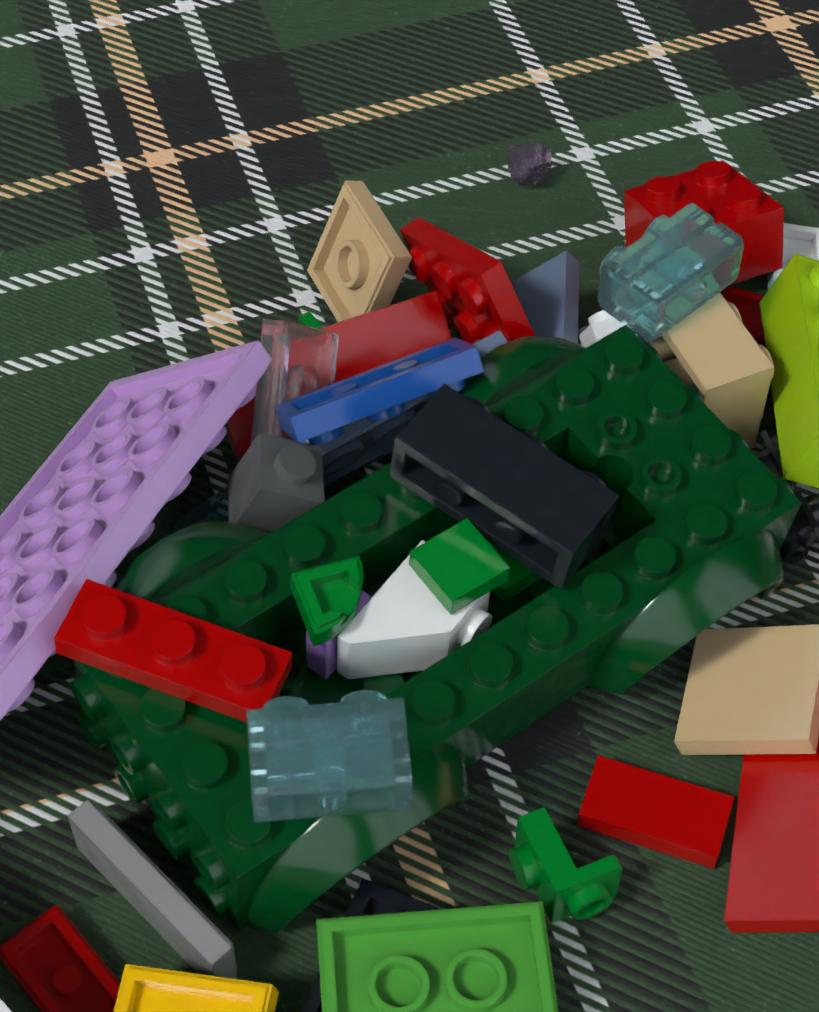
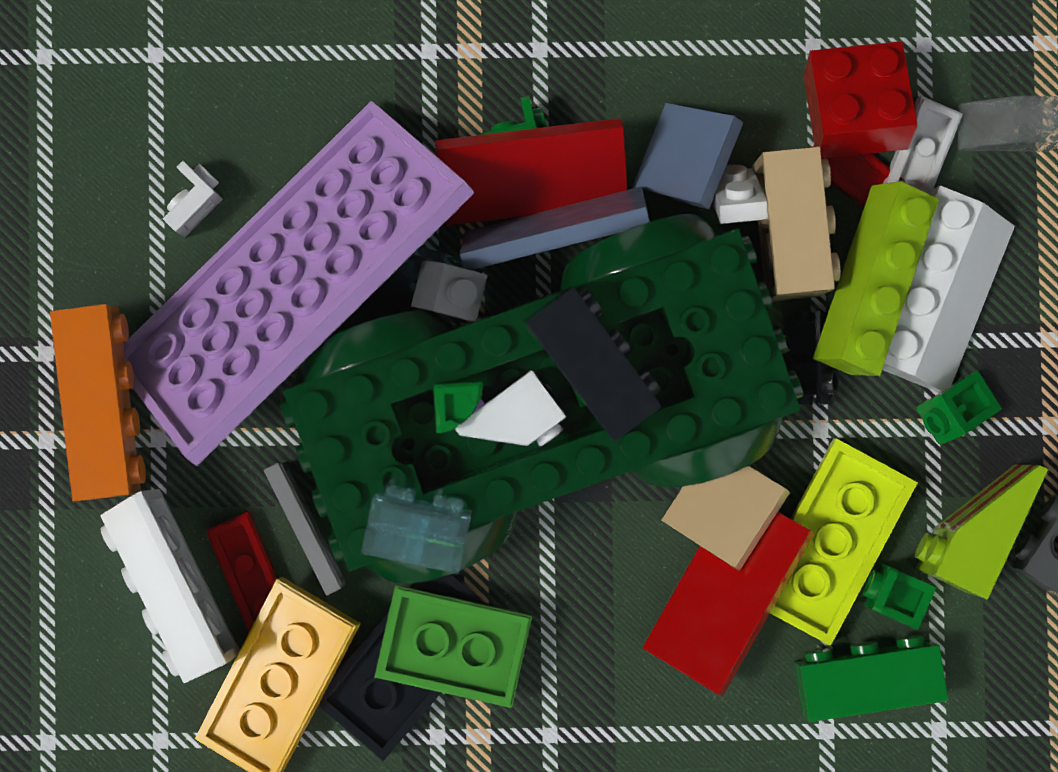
camera: 15 degrees right, 35 degrees up
(171, 651) = (343, 422): red plate -> none
(295, 363) = (490, 196): clear tile -> none
(358, 255) = (580, 59): tan tile -> none
(378, 392) = (539, 243): blue plate -> none
(459, 566) = (546, 404): green tile -> none
(469, 284) = (643, 131): red plate -> none
(546, 866) = (545, 581): green bracket -> none
(655, 811) = (631, 562): red tile -> none
(669, 271) = (788, 191): clear light blue brick -> none

